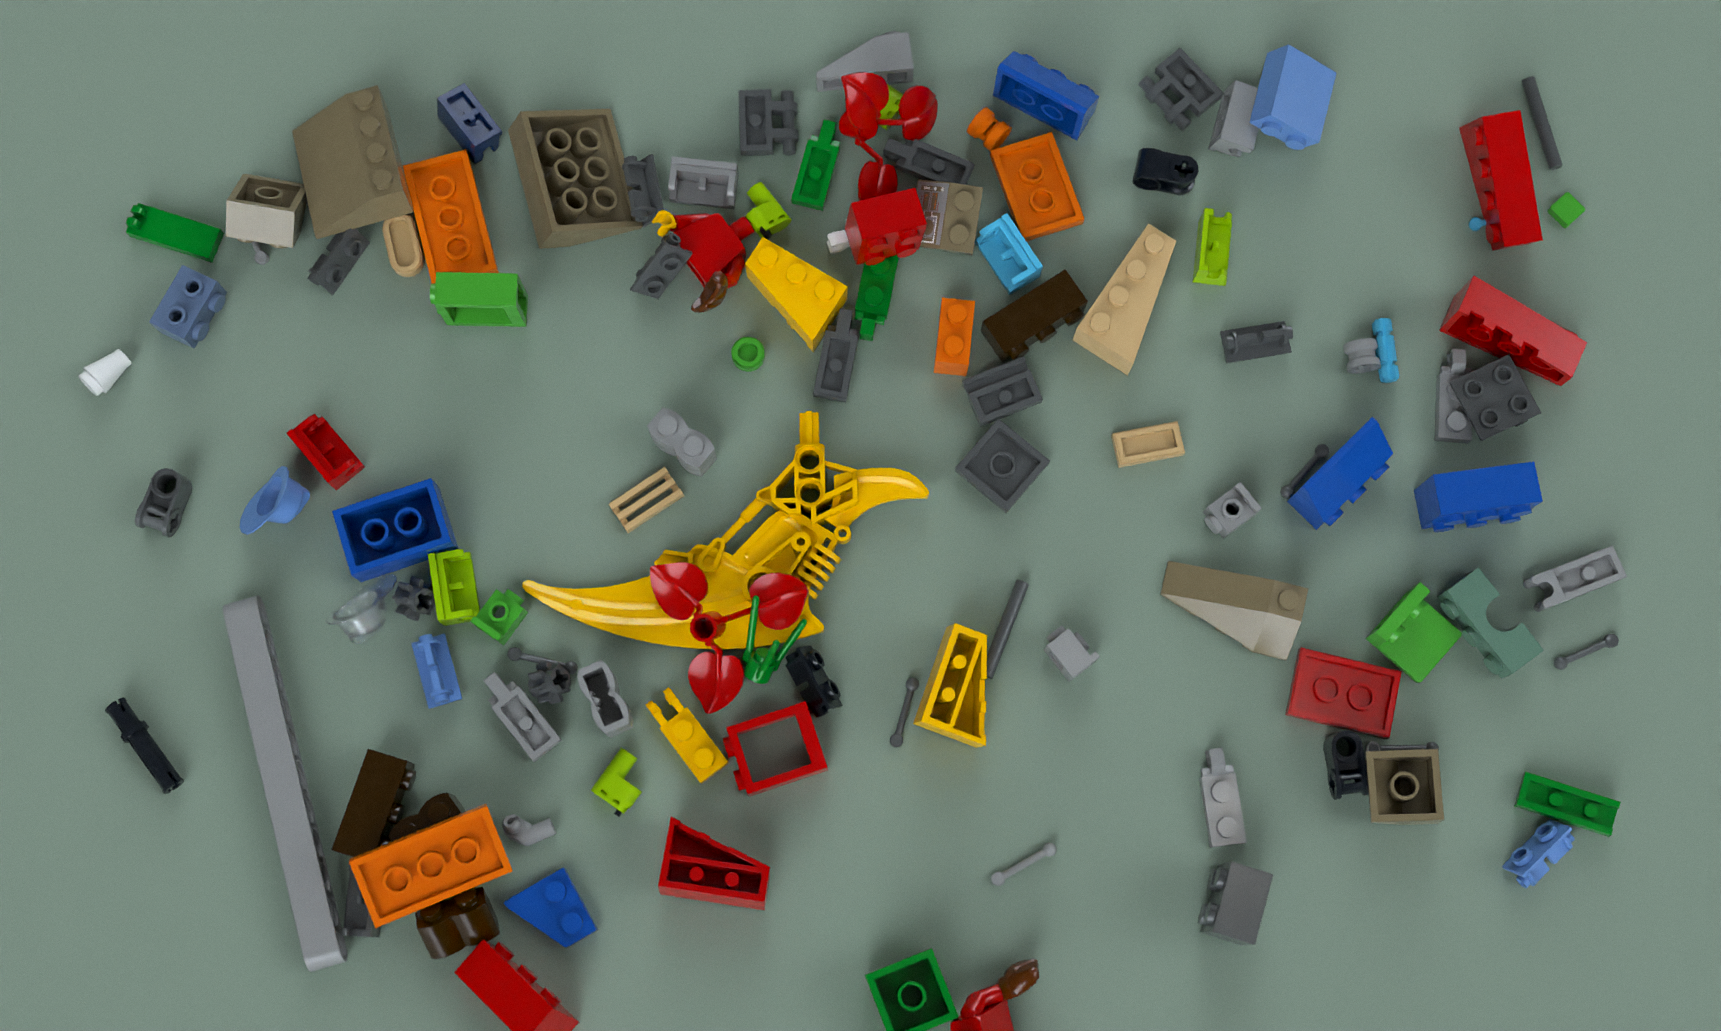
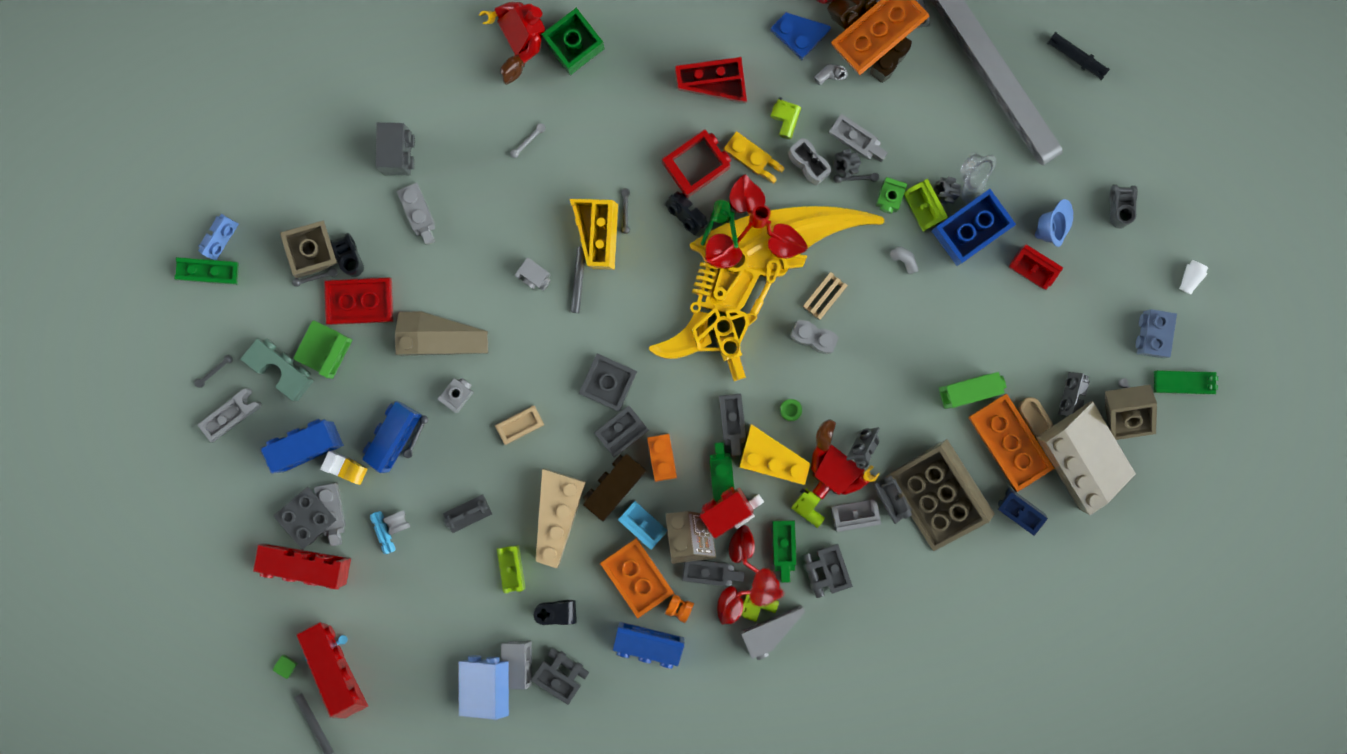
camera: 165 degrees right, 10 degrees up
(374, 803) = (926, 59): dark brown brick -> none
(436, 670) = (918, 152): medium blue hinge -> none
(508, 521) = (906, 256): none -> light grey arm
(1420, 453) = (344, 467): none -> leg

